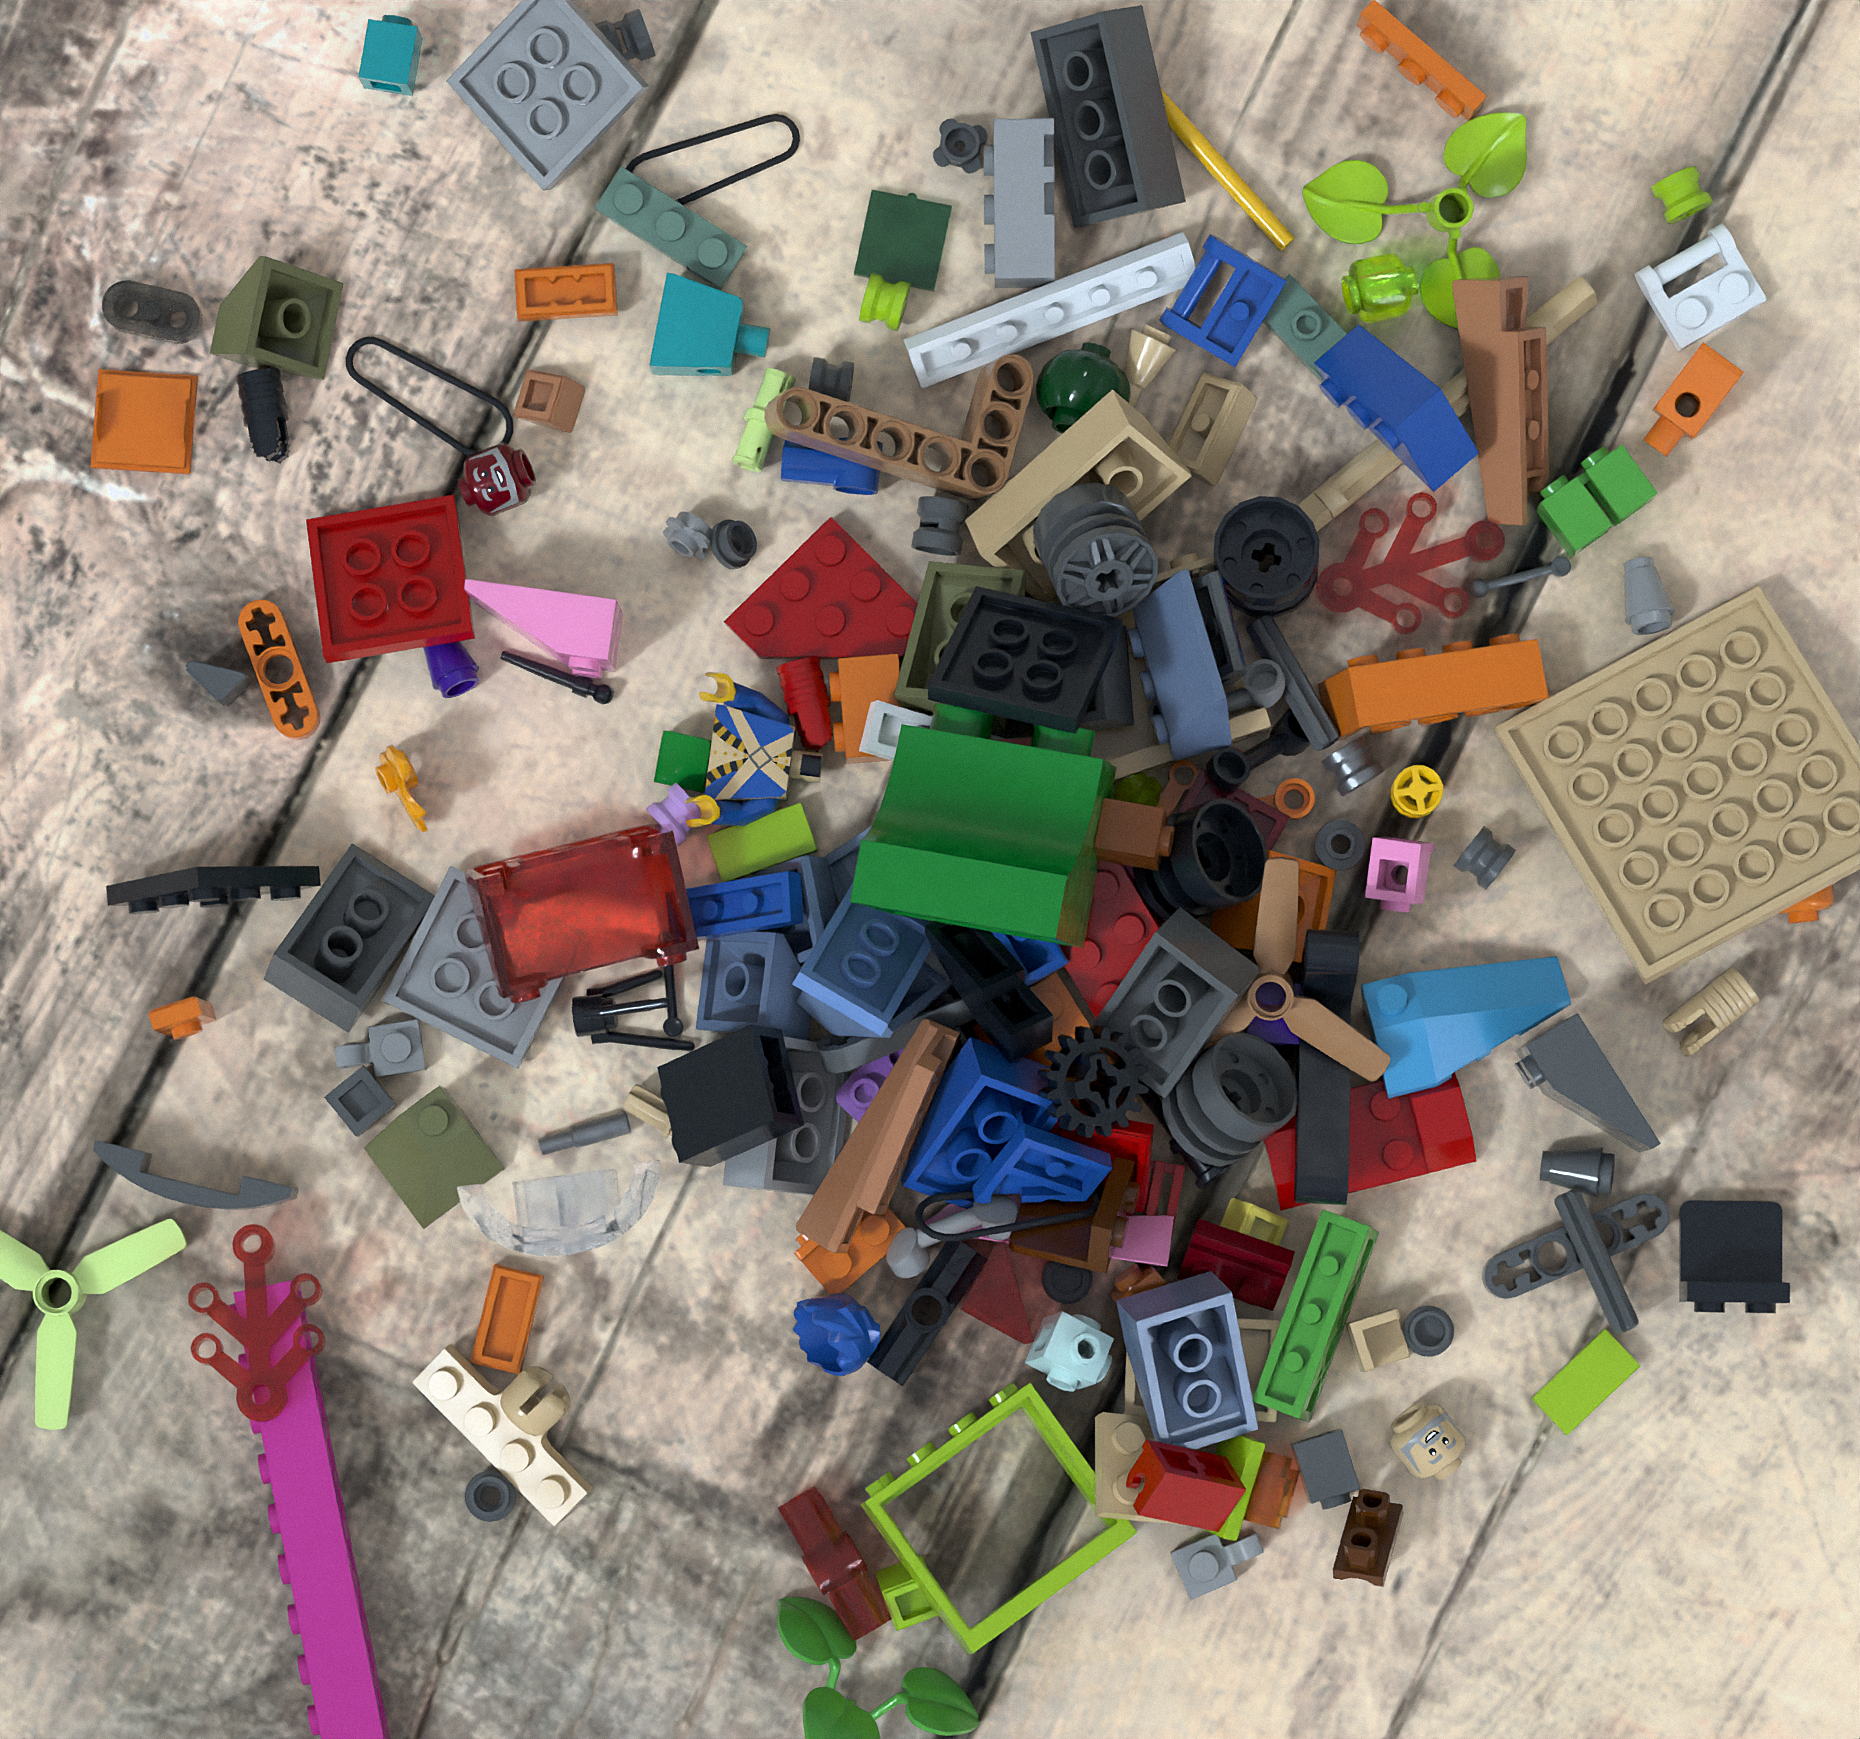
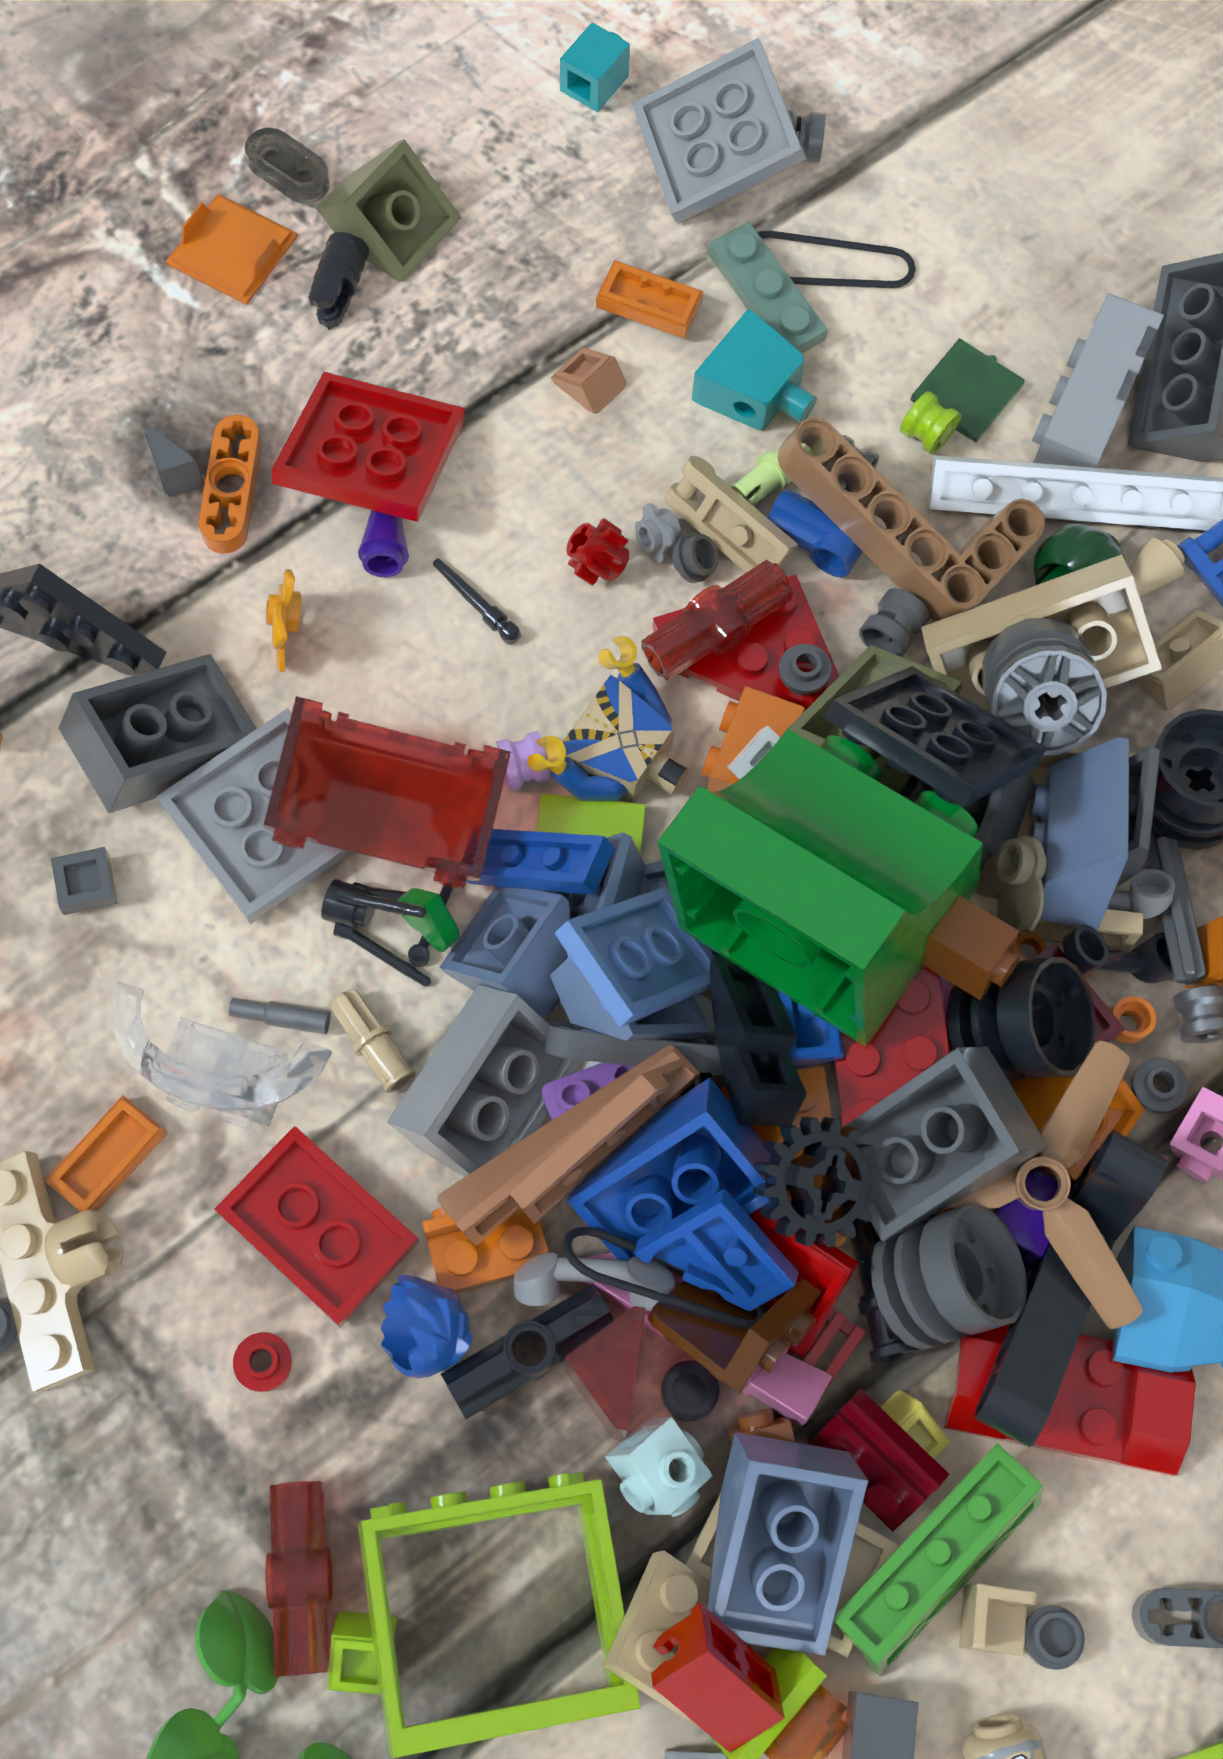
camera: 15 degrees right, 15 degrees down
(392, 1050) = (139, 851): light grey plate -> none
(431, 1154) = (129, 943): olive slope -> none
(441, 374) = (506, 320): black piece -> none
(497, 479) = (509, 411): dark red head -> none
(567, 626) = (503, 540): bright pink slope -> none
(645, 583) = (597, 552): none -> red gear
(682, 999) = (438, 924): none -> green tile
(683, 761) = (552, 712): green slope -> none
(708, 1293) = (317, 1226): none -> red plate
(730, 1096) = (438, 1029): black brick -> none
(732, 1406) = (277, 1372): none -> red plate
(747, 494) = (727, 518): none -> tan plate
(784, 607) = (717, 619): none -> clear red piece
(807, 700) = (696, 716): red hinge -> none
(878, 631) = (804, 682): none -> dark grey plate
(955, 132) = (1060, 326): dark grey plate -> none
(1142, 736) = (1015, 880): none -> dark tan plate

